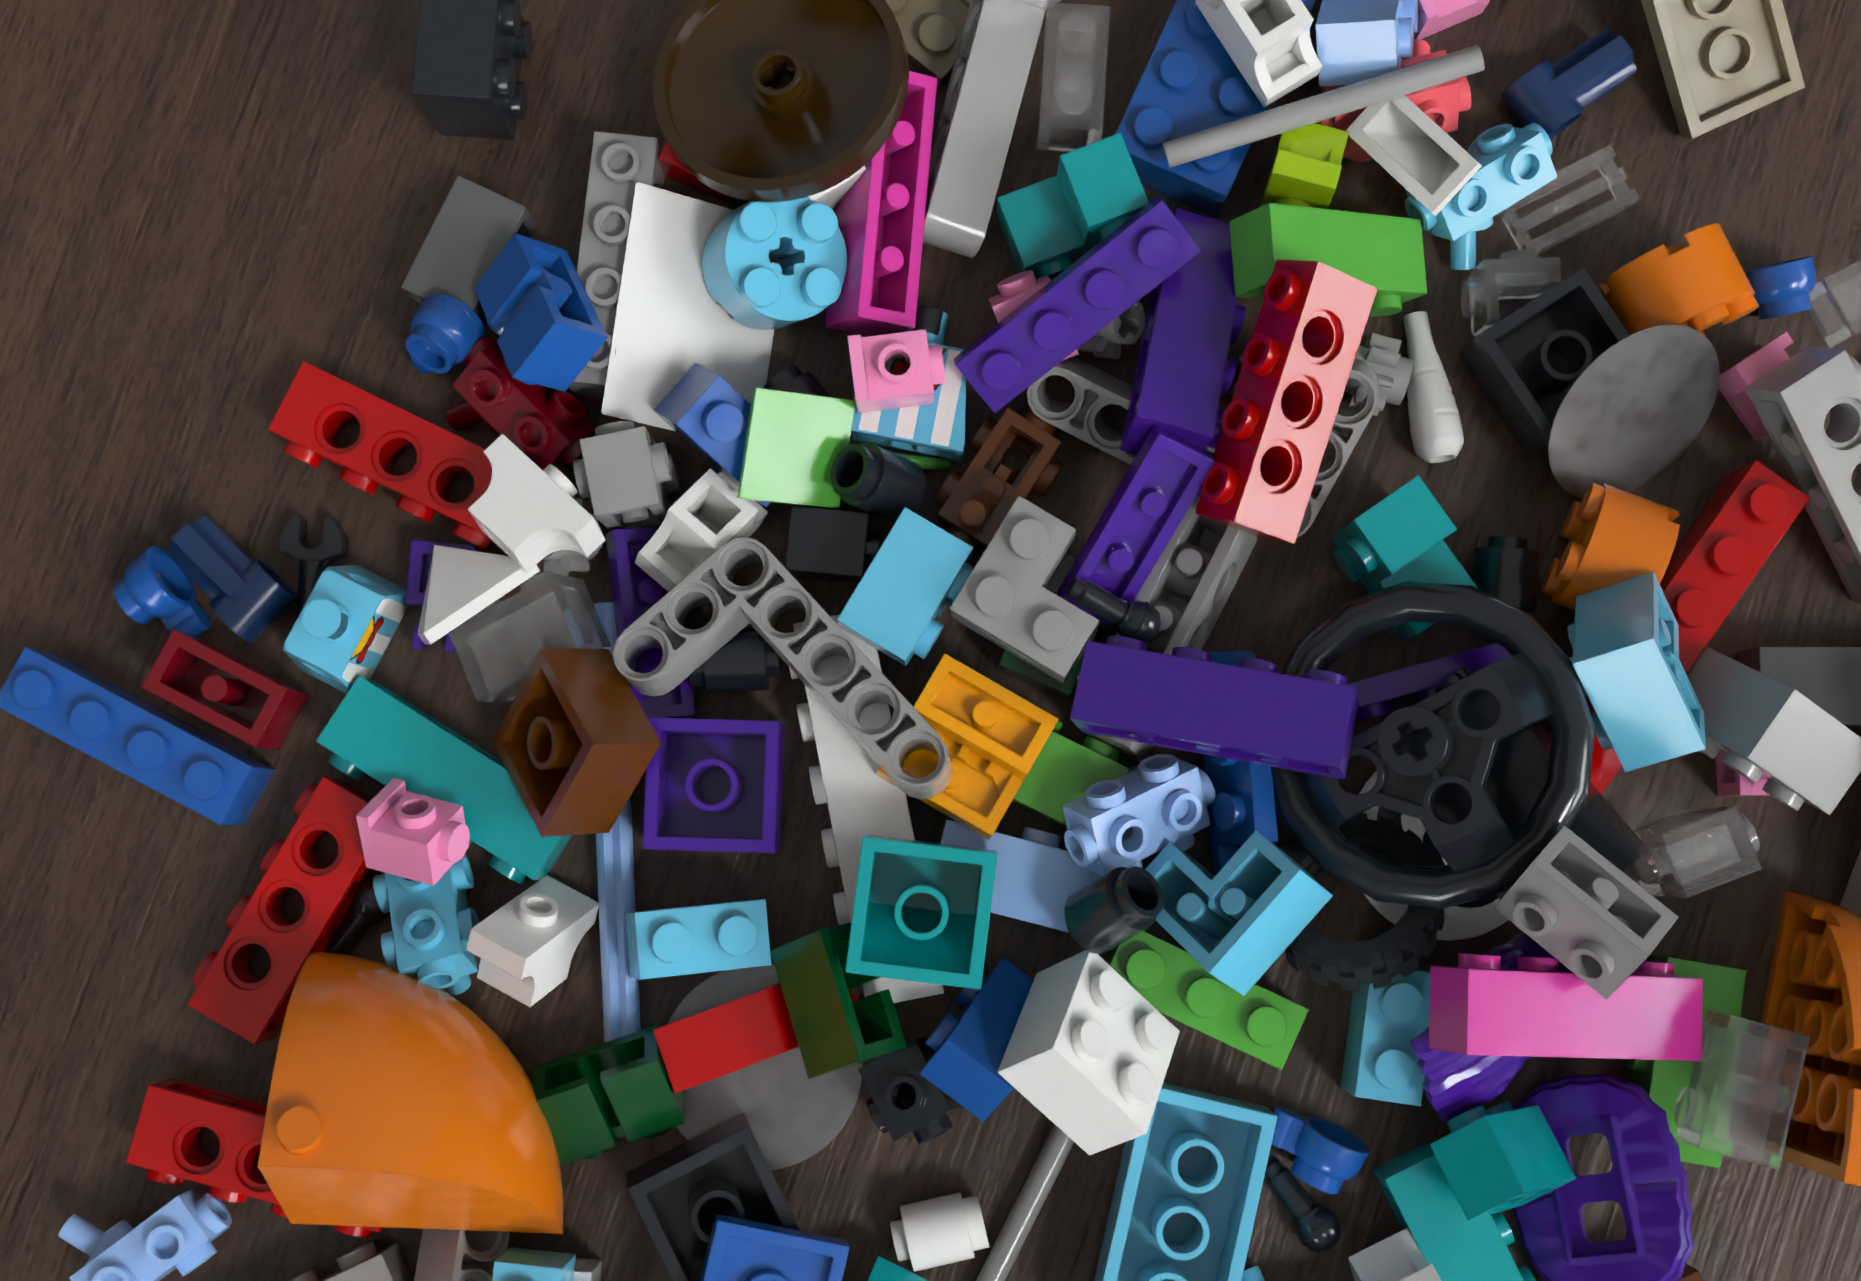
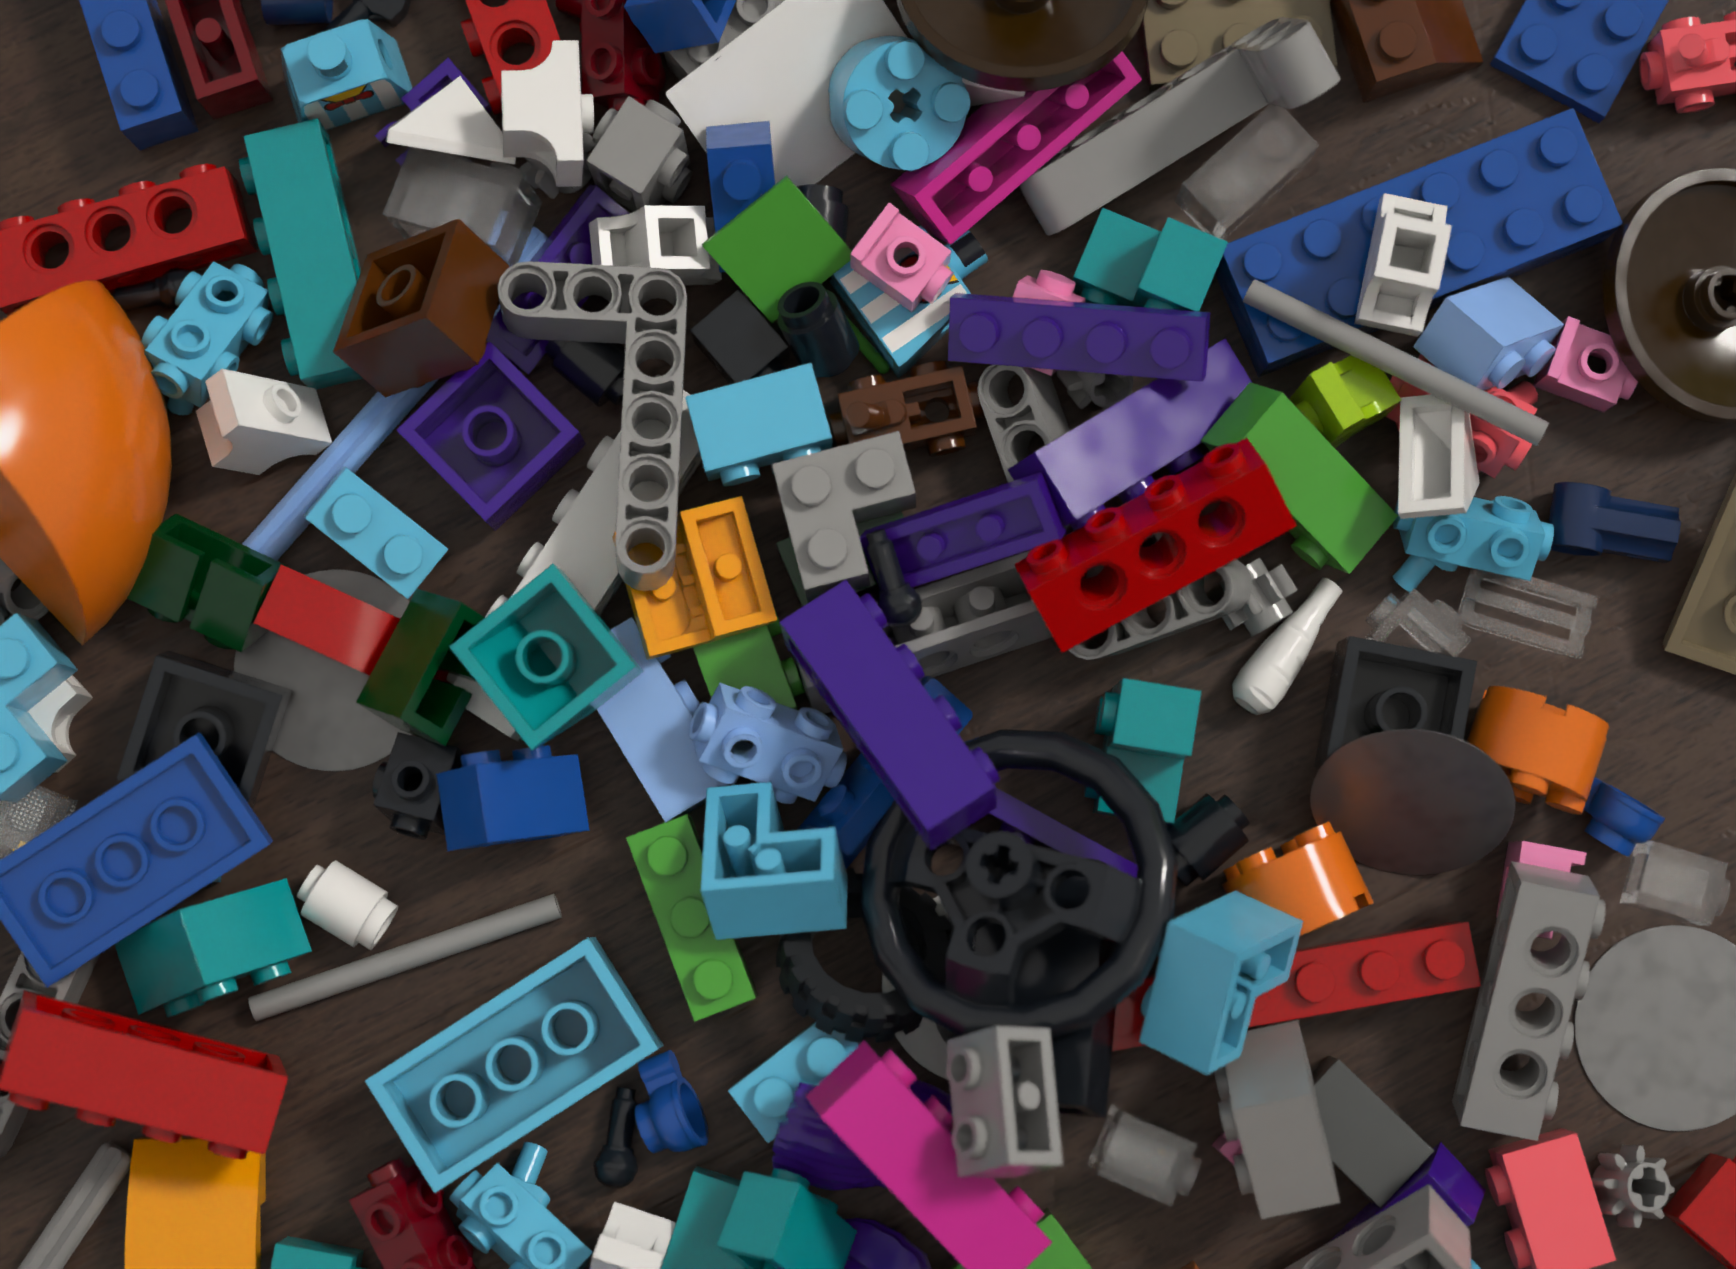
camera: 40 degrees right, 0 degrees up
(412, 834) = (246, 264): bright pink brick -> none
(1089, 1052) = (568, 873): white brick -> none
(1113, 908) = (681, 787): black brick -> none

